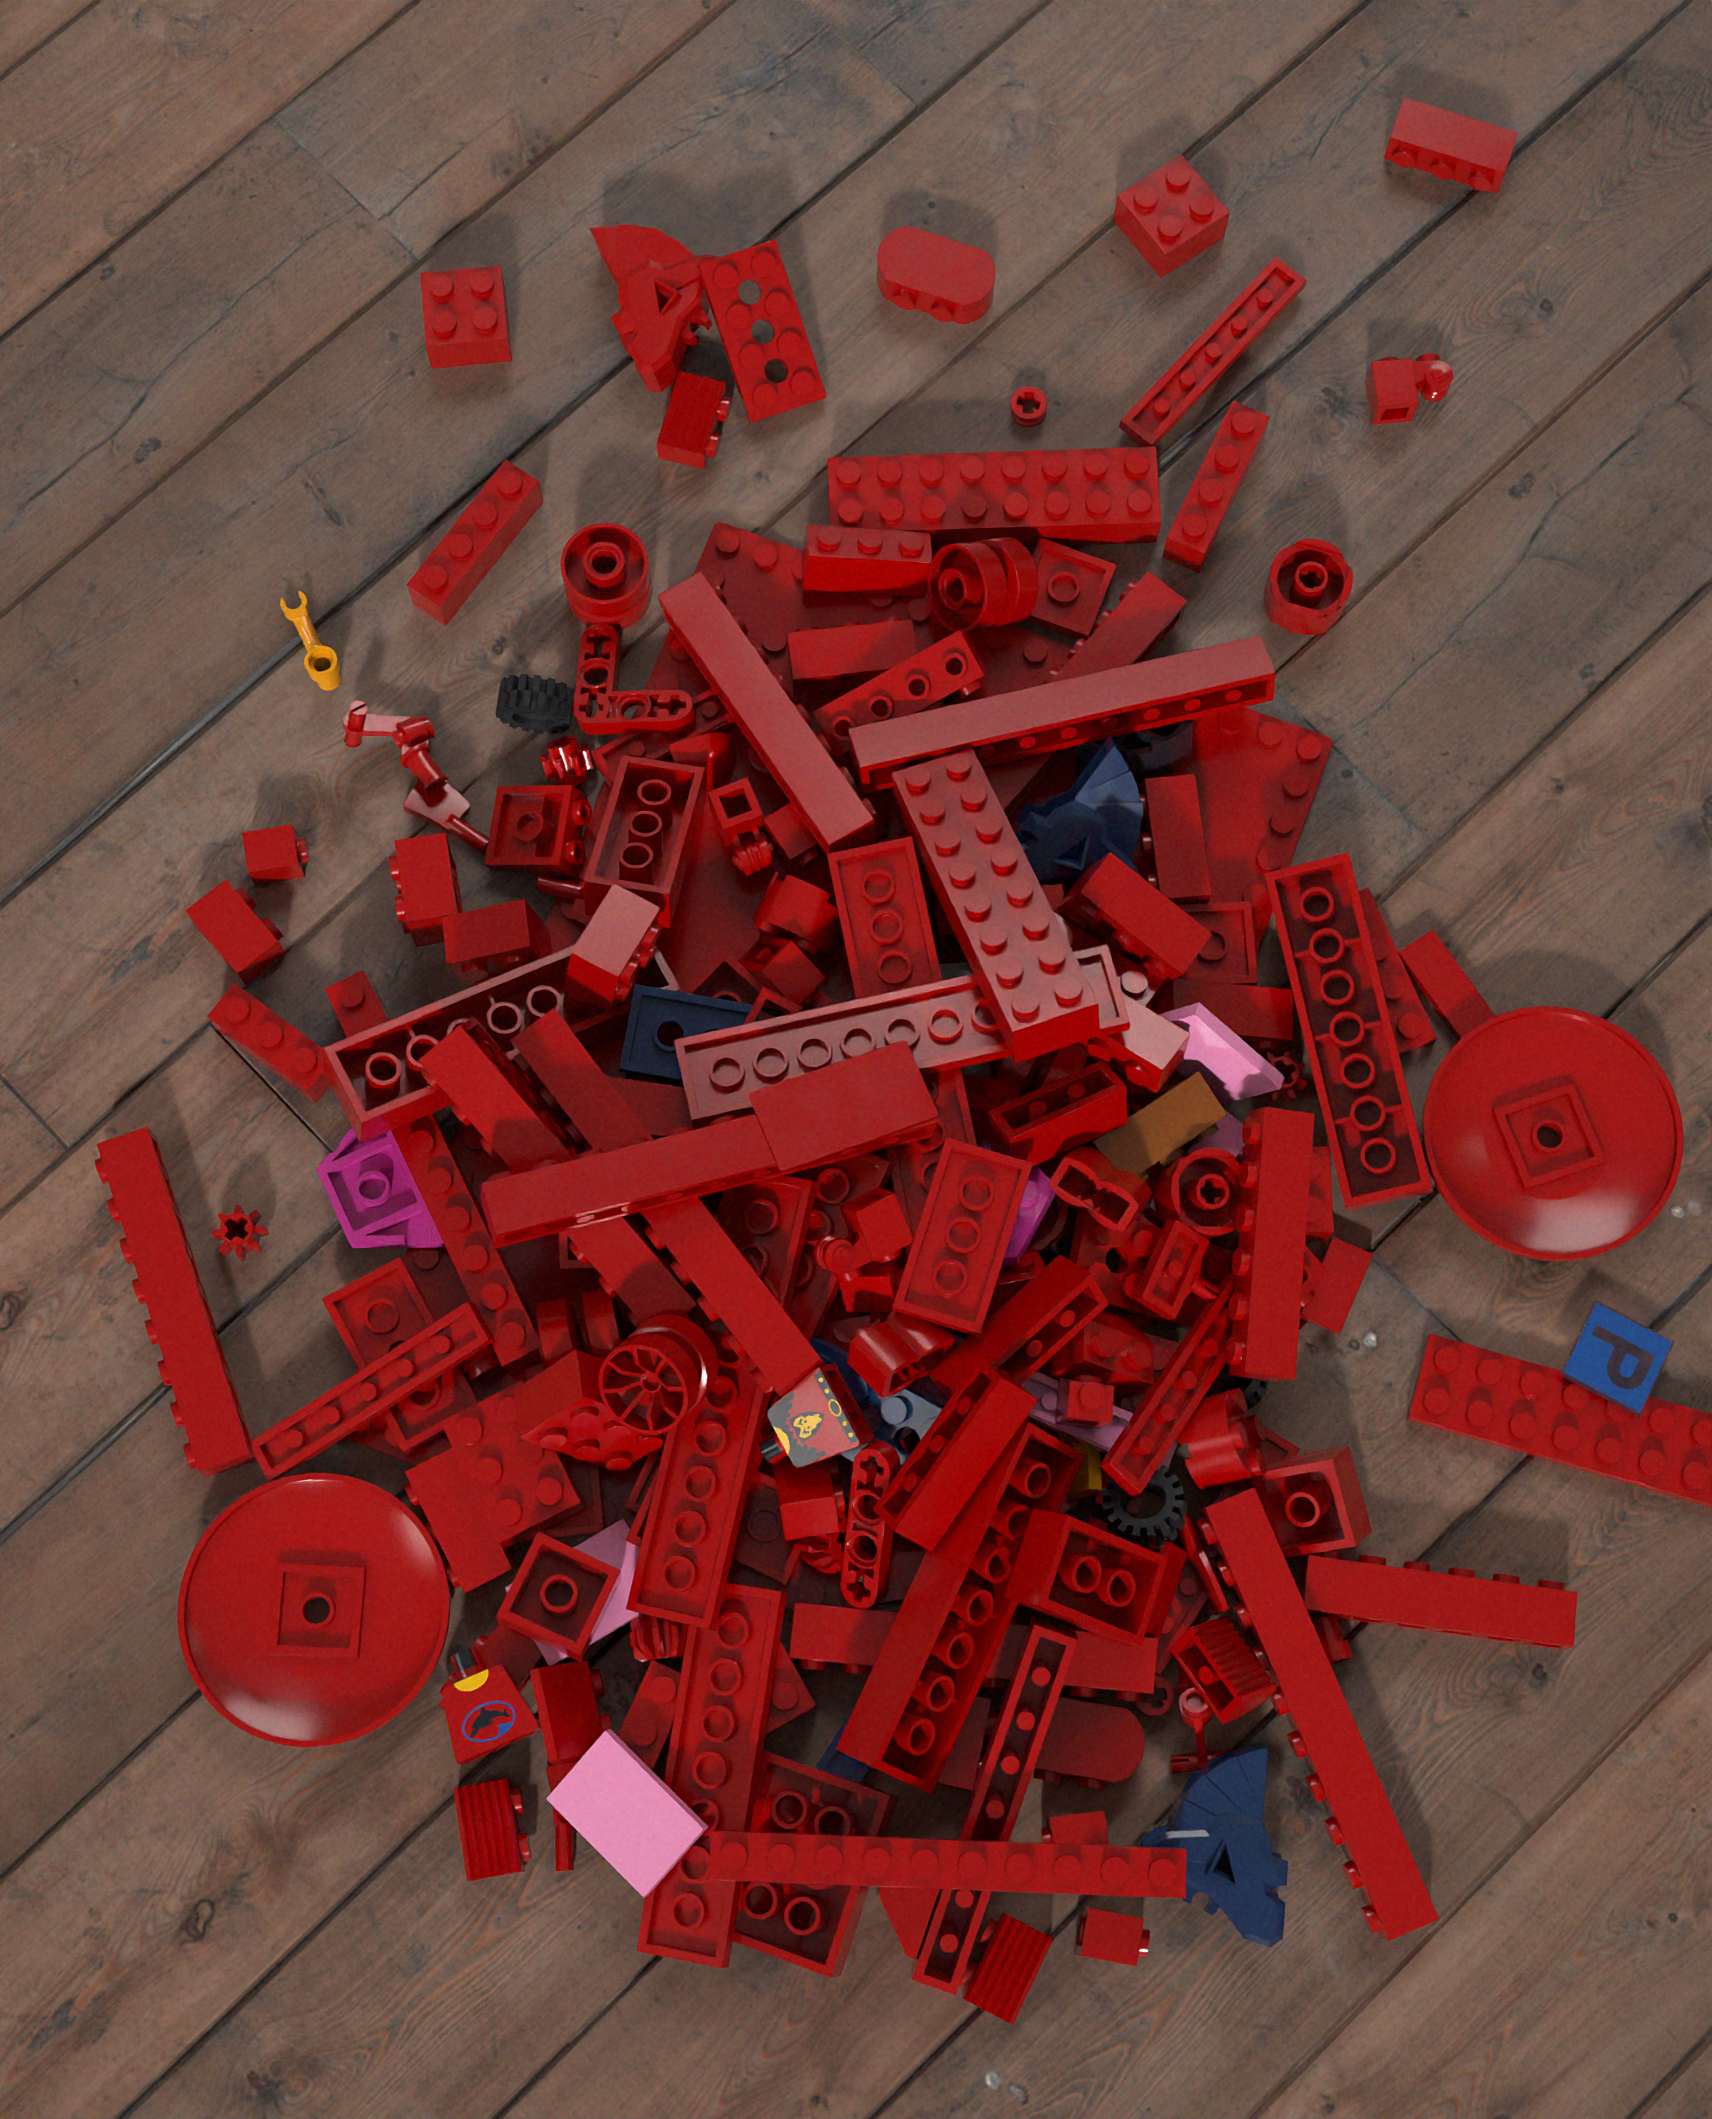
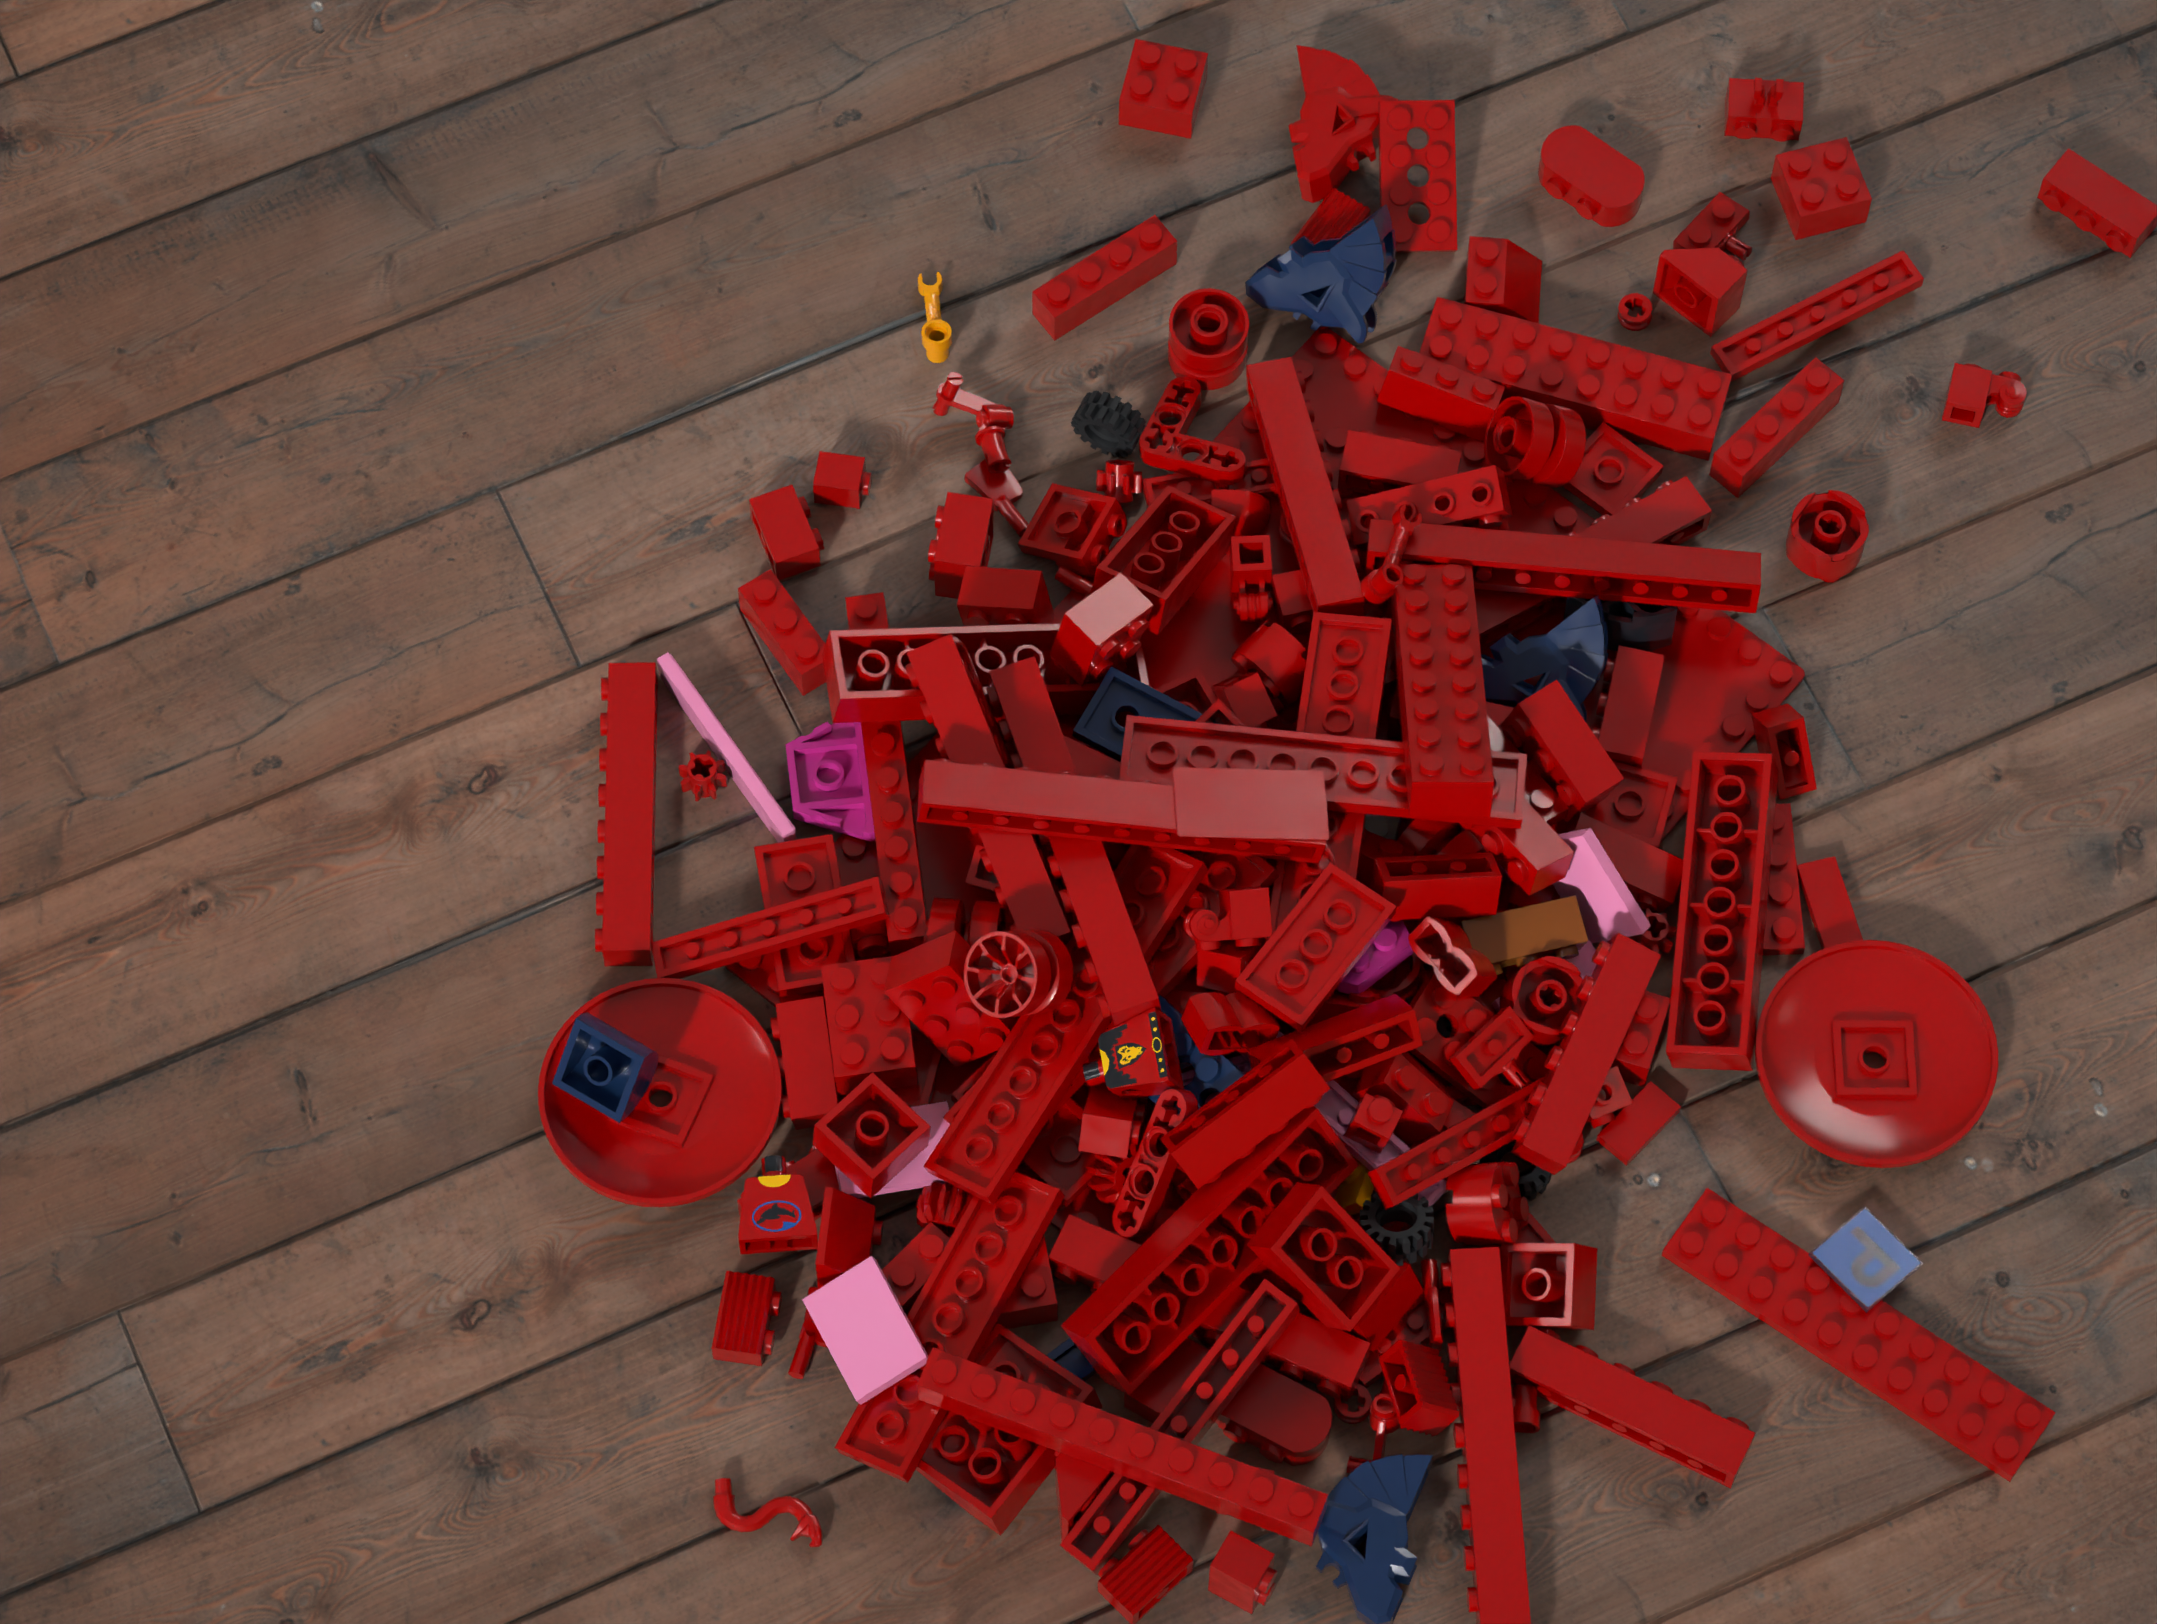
camera: 20 degrees right, 10 degrees down
(247, 1612) = (605, 1067): none -> dark blue brick
(256, 1196) = (725, 749): none -> bright pink tile
(543, 2052) = (727, 1514): none -> red animal
(712, 472) = (1332, 279): none -> dark blue animal
(884, 416) = (1502, 278): none -> red slope
(888, 798) = (1381, 582): none -> red brick
(1078, 295) = (1717, 228): none -> red plate
(1084, 149) = (1764, 109): none -> red brick
(1089, 359) = (1701, 285): none -> red slope
(1342, 826) = (1784, 735): none -> red slope

